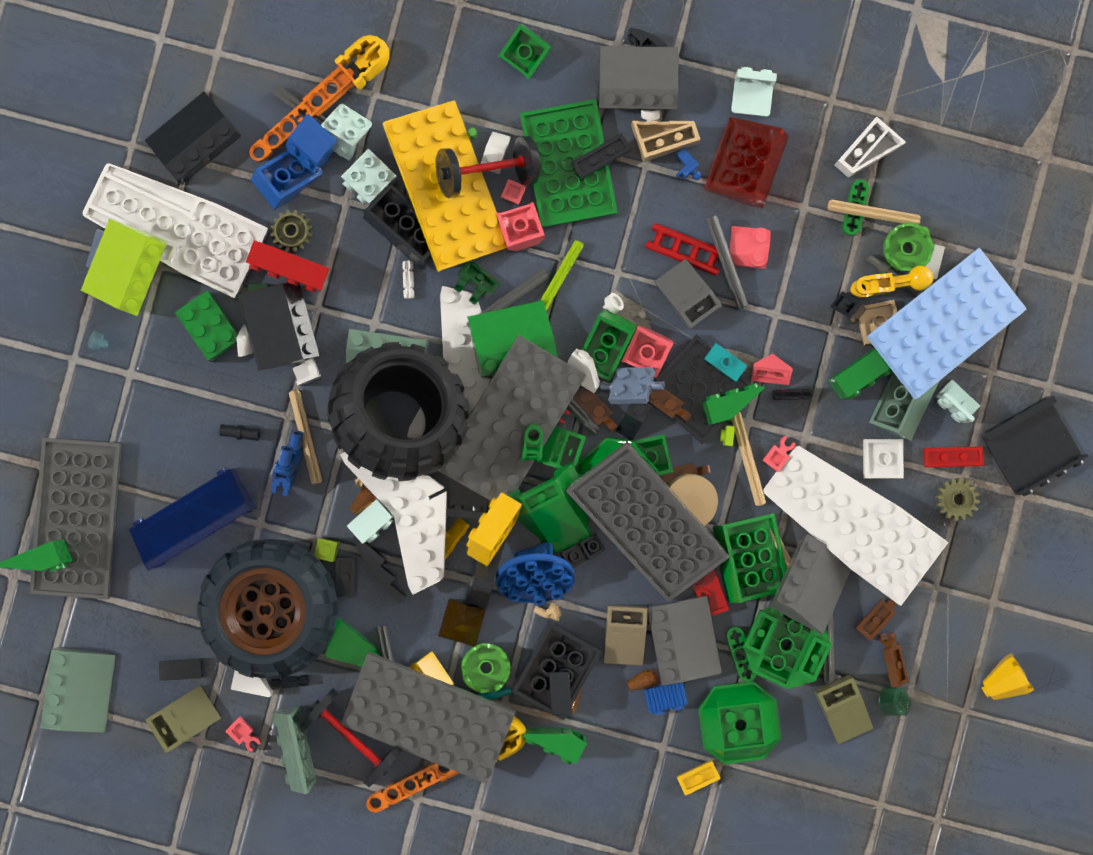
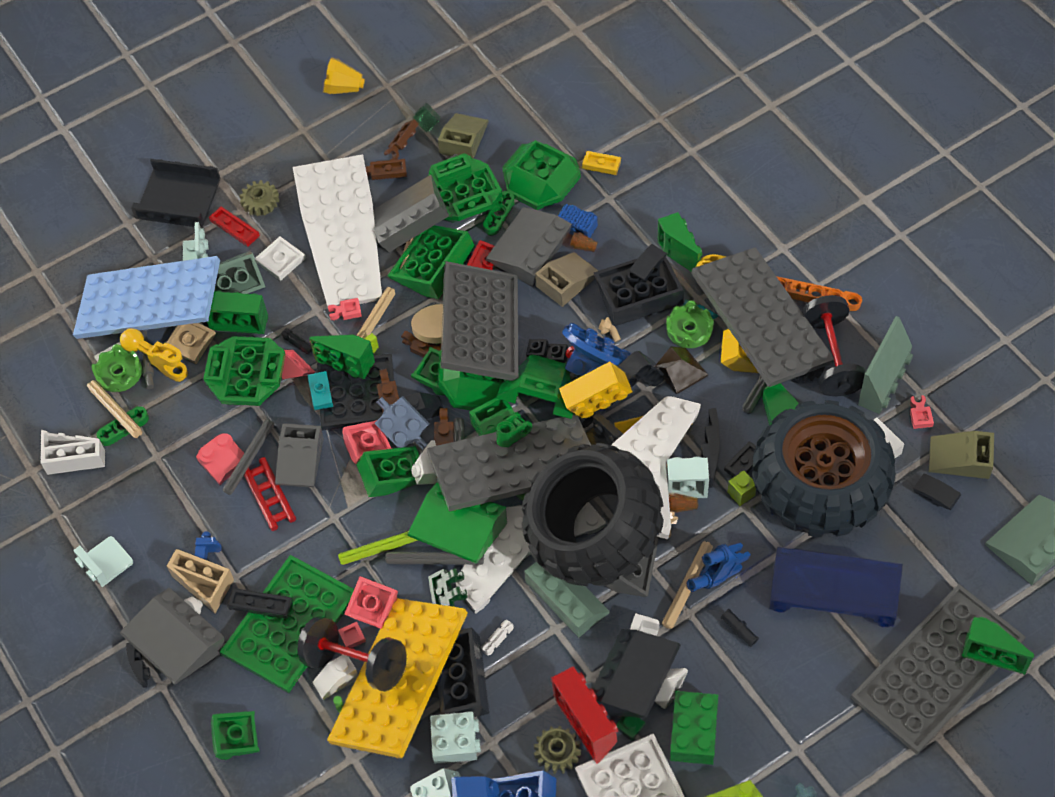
camera: 135 degrees left, 30 degrees down
(613, 303) = (359, 494): white tile -> none
(747, 162) = (161, 516): clear red slope -> none
(821, 324) = (234, 358): none -> green piece
(848, 307) = (198, 359): black slope -> none

